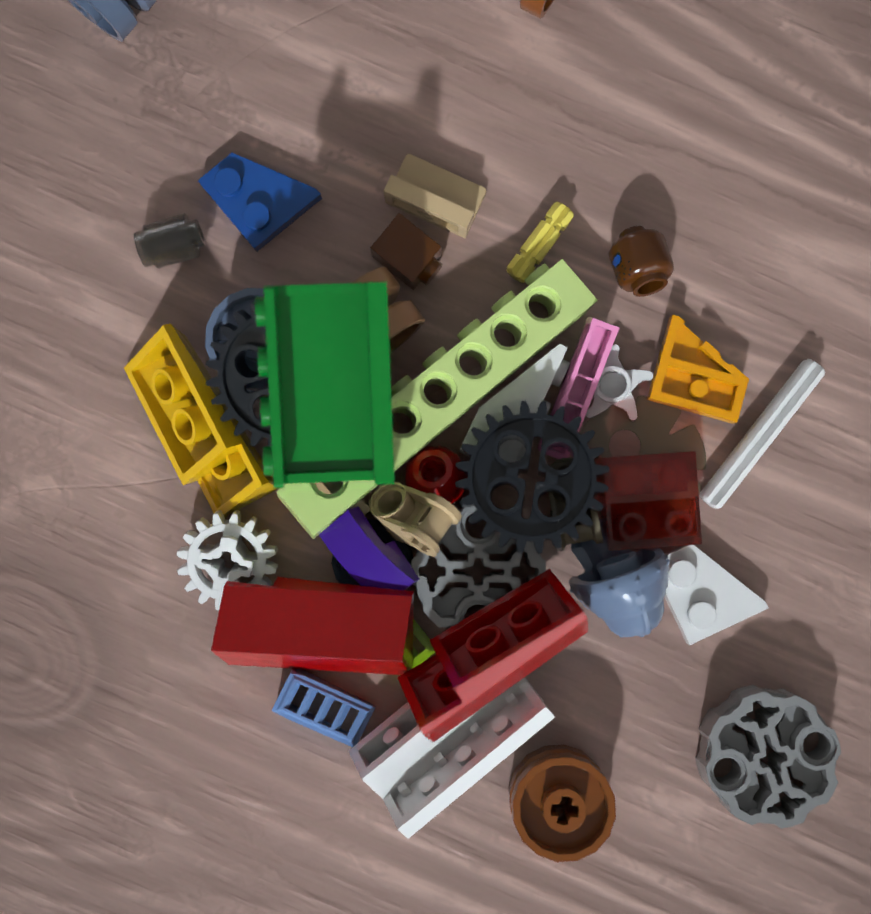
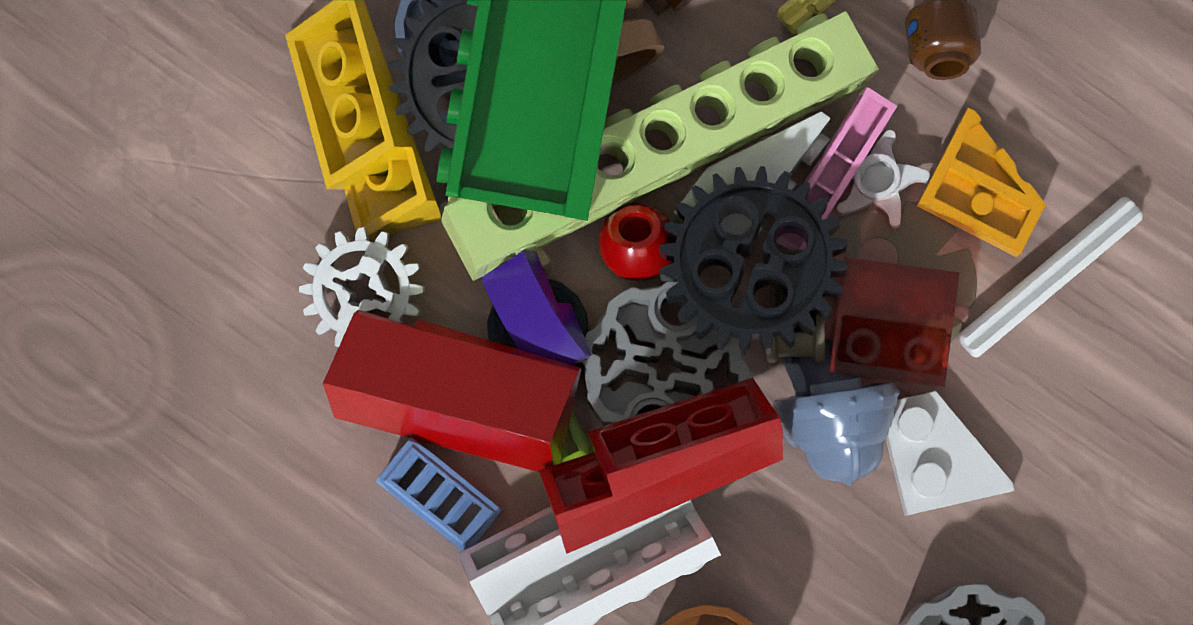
camera: 15 degrees right, 5 degrees down
(413, 516) = (601, 277): tan piece -> none

